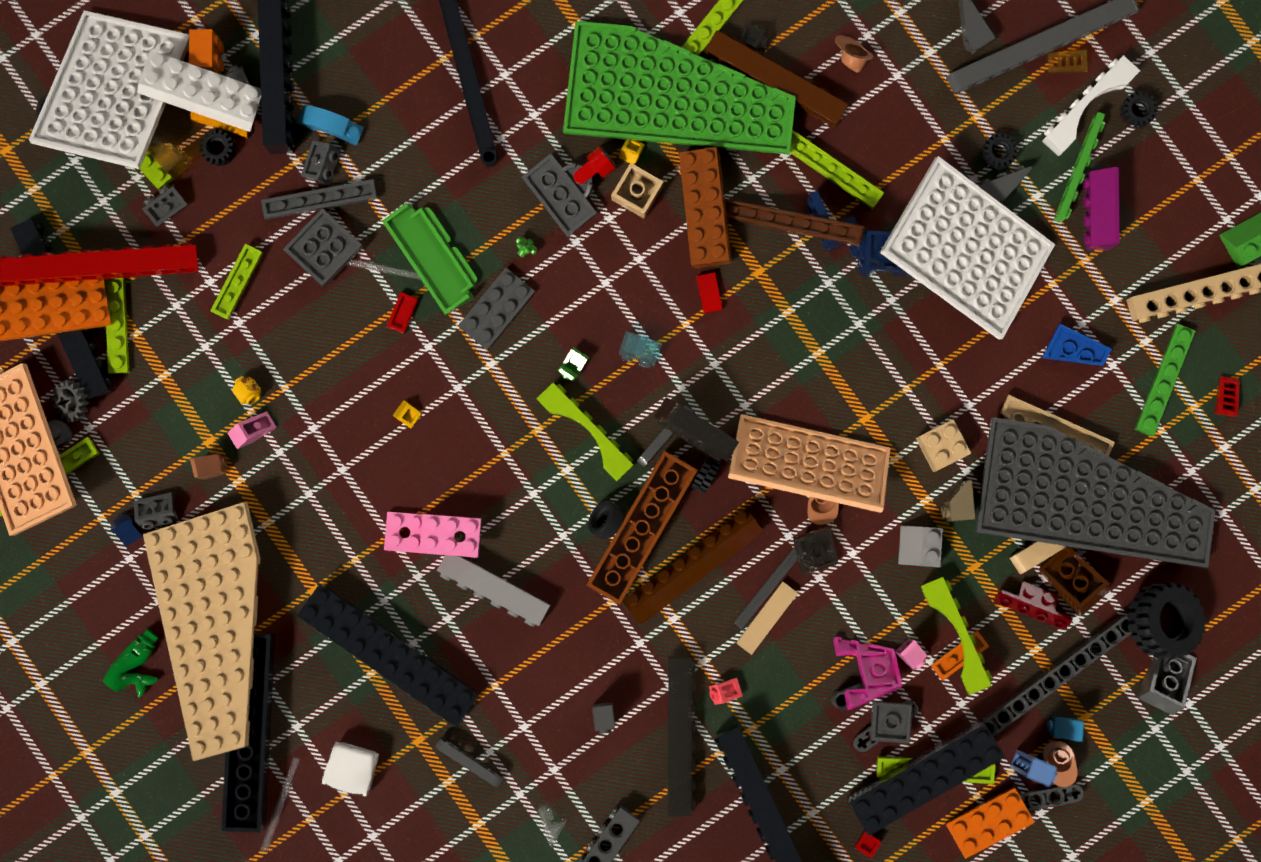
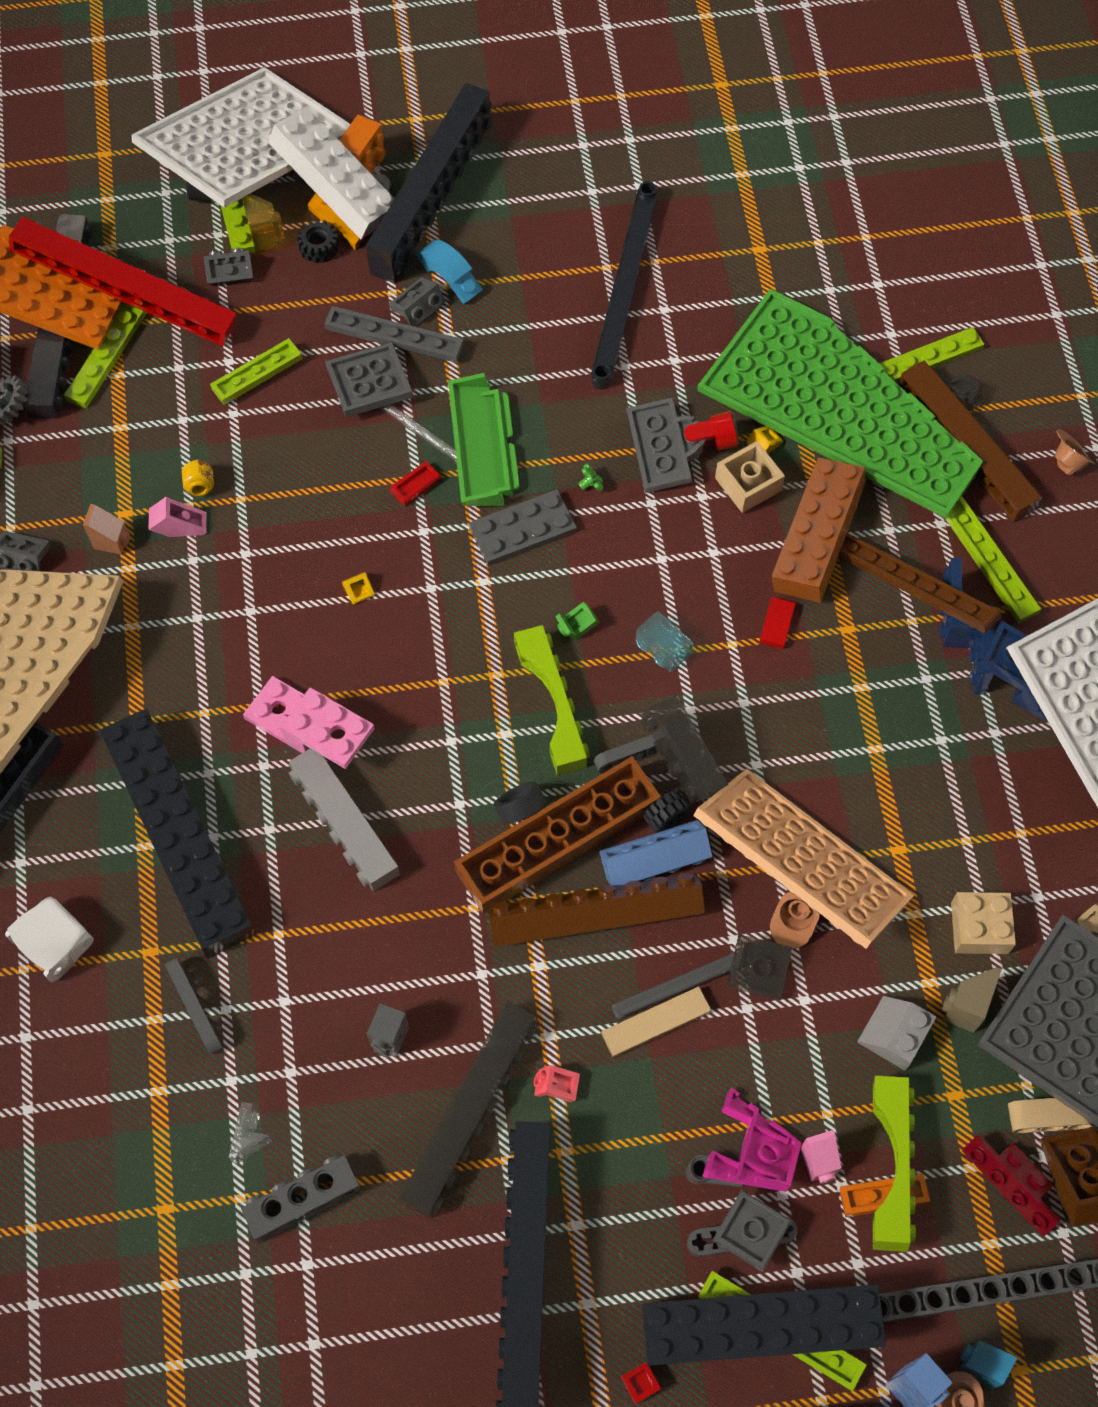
camera: 25 degrees right, 20 degrees down
(711, 508) = (656, 854): none -> medium blue brick

